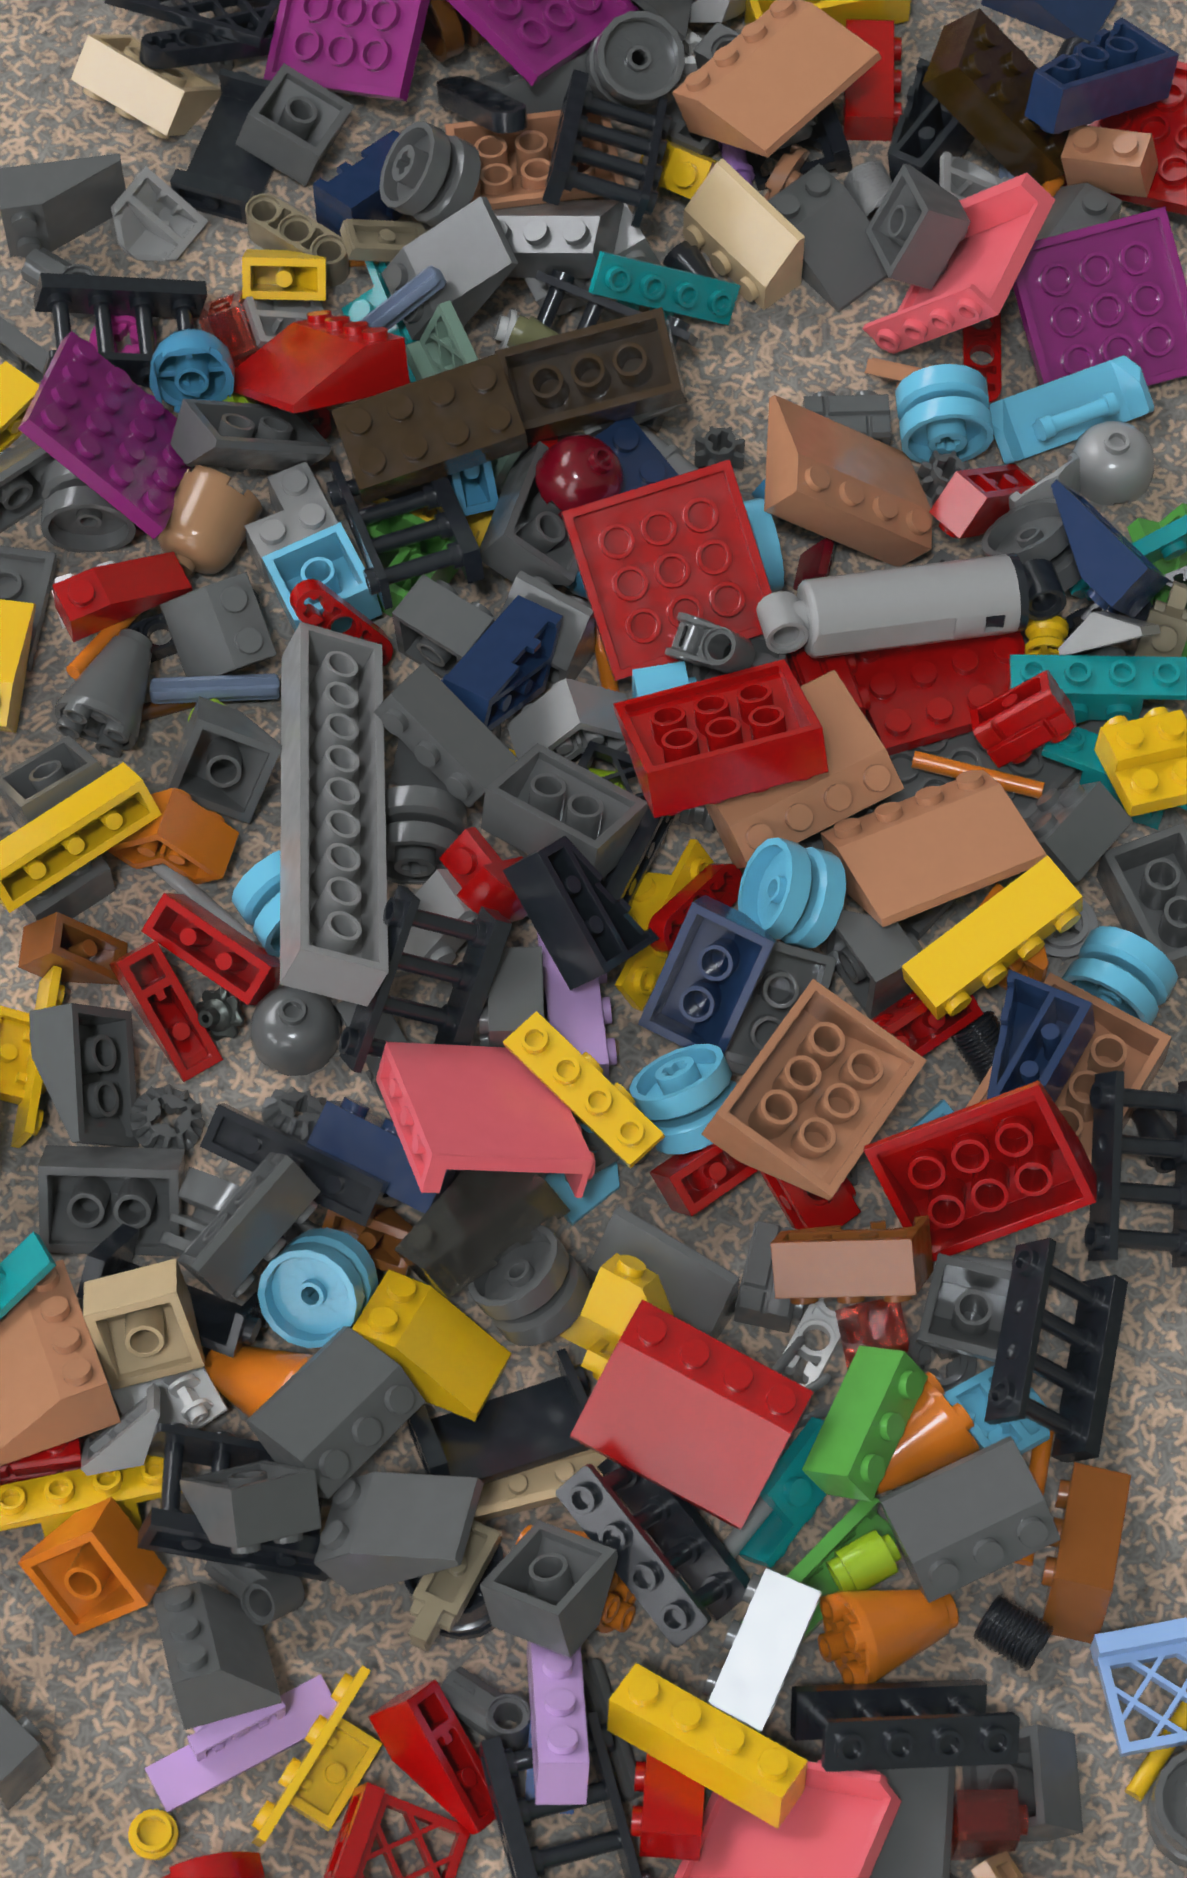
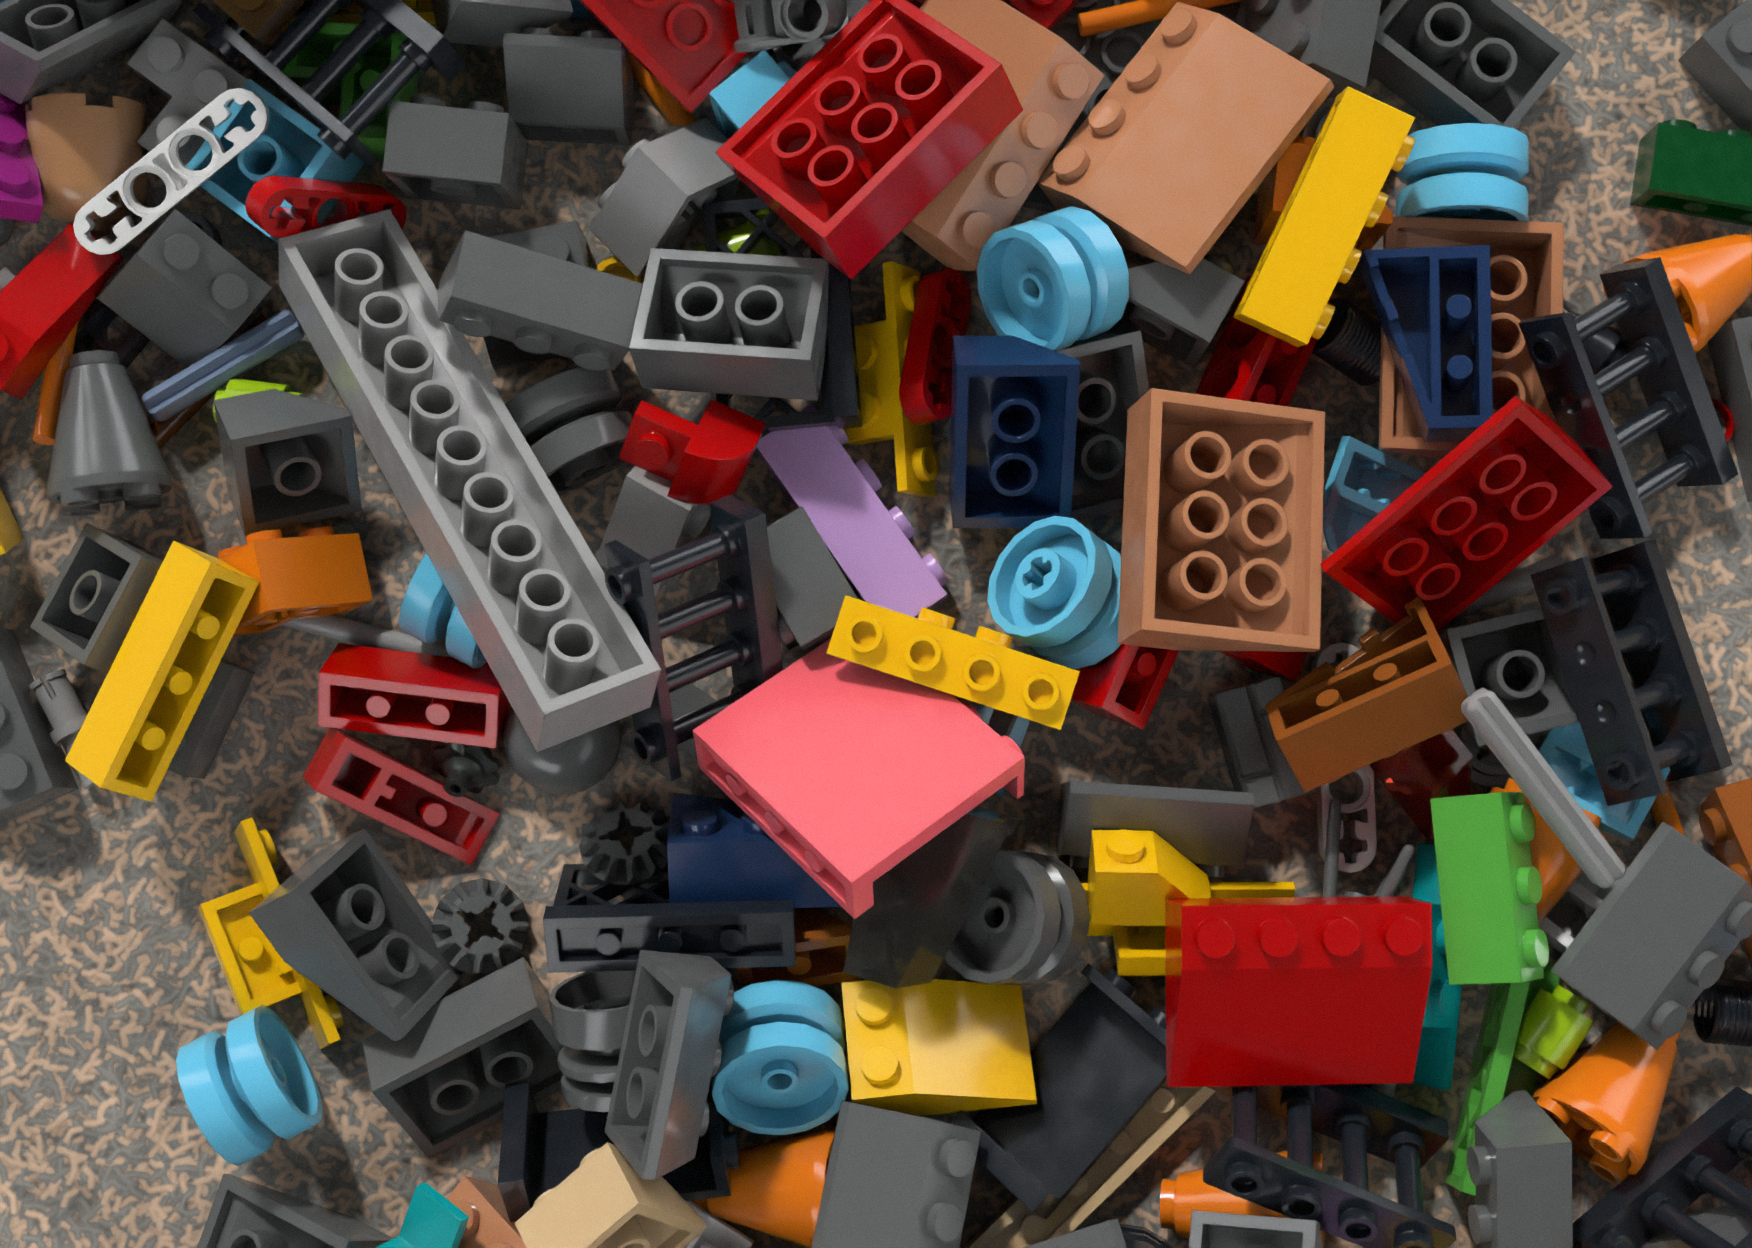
camera: 25 degrees left, 20 degrees up
(73, 946) = (247, 784): dark orange slope -> none
(256, 543) = (165, 163): none -> white beam
(507, 662) = (553, 164): dark blue wedge -> none
(575, 913) = (823, 448): black wedge -> none
(936, 1366) = (1543, 787): none -> light grey axle

